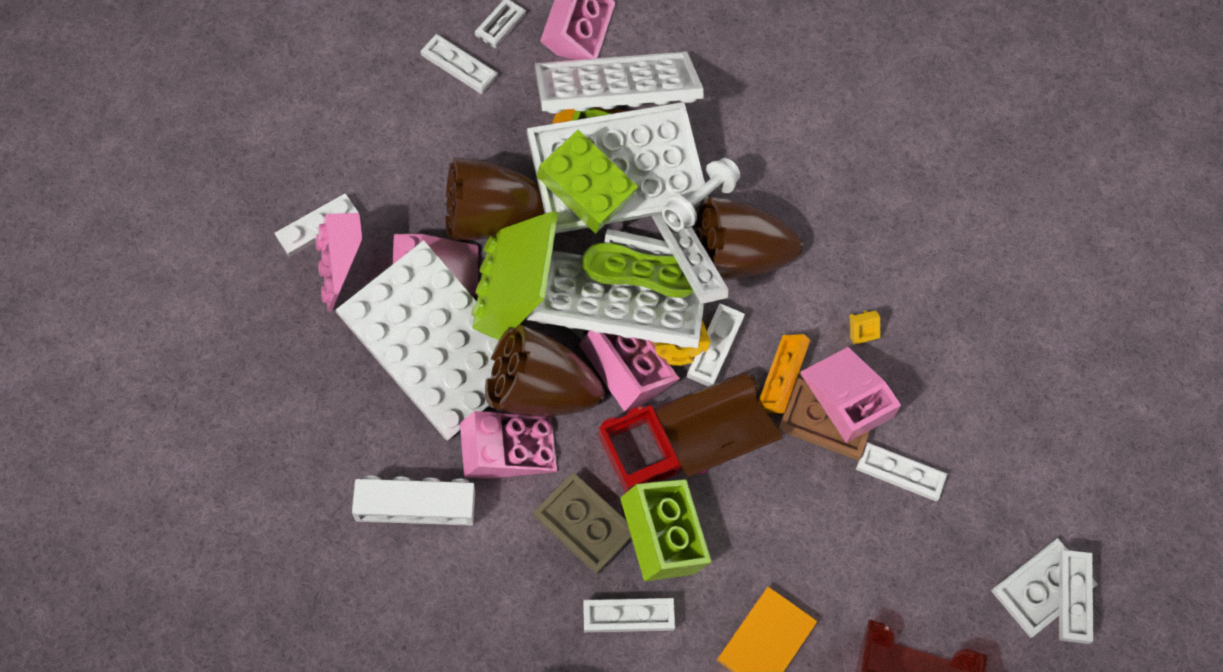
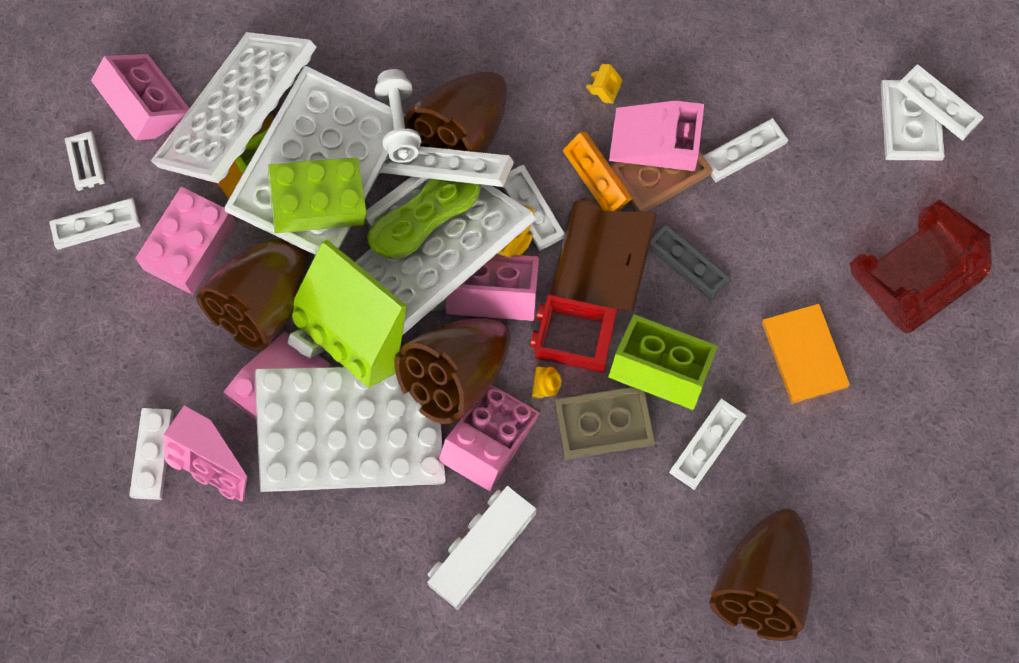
camera: 45 degrees left, 5 degrees up
(474, 261) = (304, 344): none -> white plate
(491, 128) = (186, 240): none -> bright pink brick
(584, 457) = (546, 382): none -> yellow plate
(769, 495) = (688, 262): none -> dark grey tile

